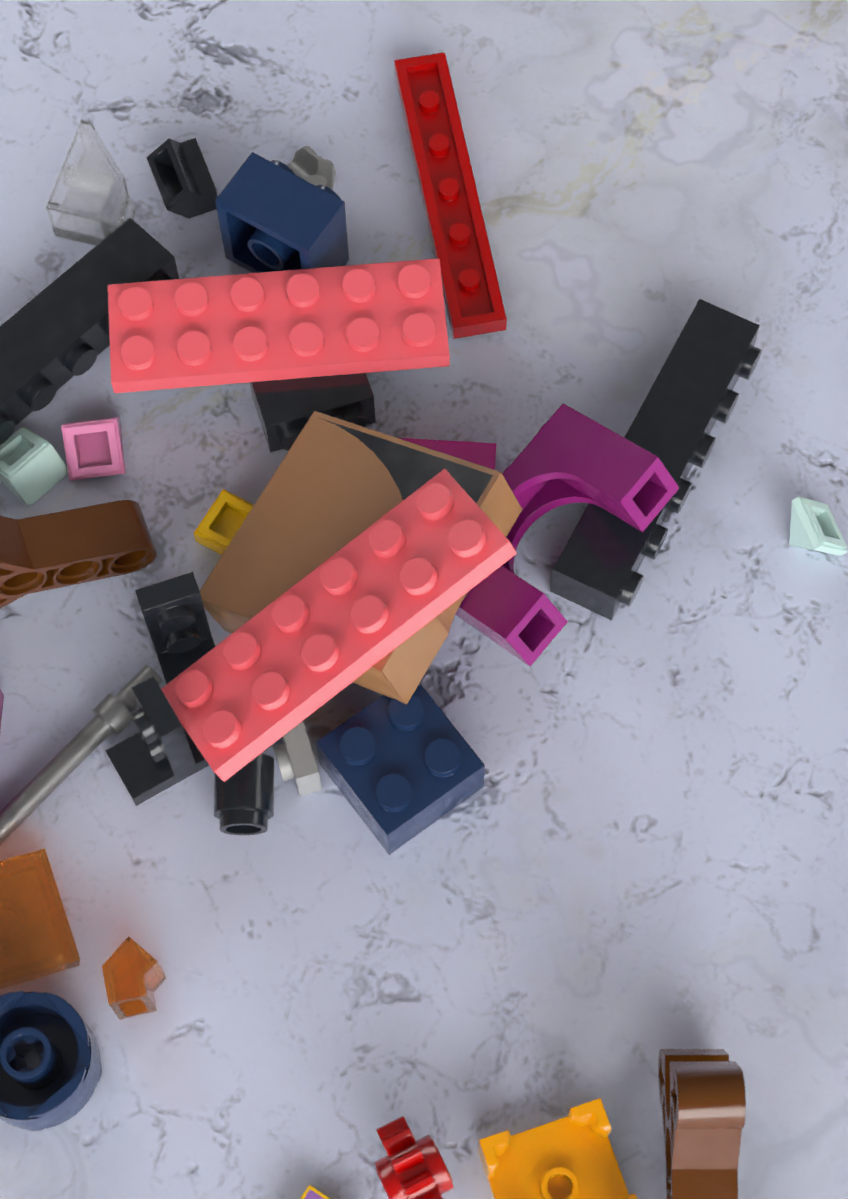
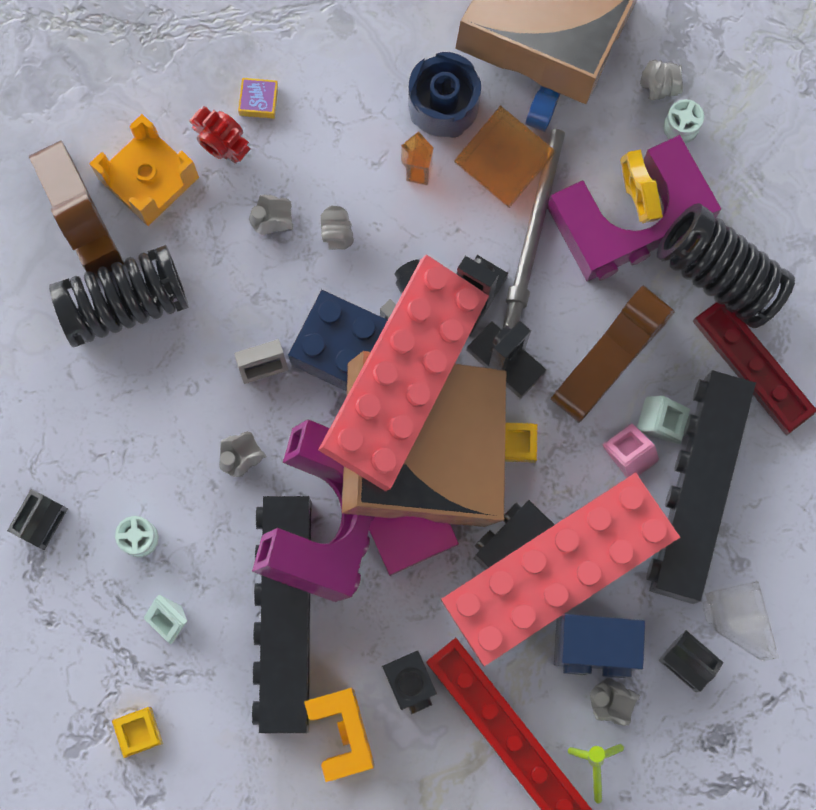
camera: 150 degrees right, 10 degrees up
(313, 941) = (336, 228): none -> light grey arm
(363, 116) = (596, 759): none -> lime plant
(400, 1013) = (271, 215): none -> light grey arm
(524, 800) = (258, 355): none -> light grey piece
(533, 328) = (410, 664): none -> black brick
(618, 686) = (239, 454): none -> light grey arm
(655, 277) = (351, 732): none -> light orange panel
(658, 963) = (123, 310): none -> black piece
(818, 635) = (129, 536): none -> light aqua wheel

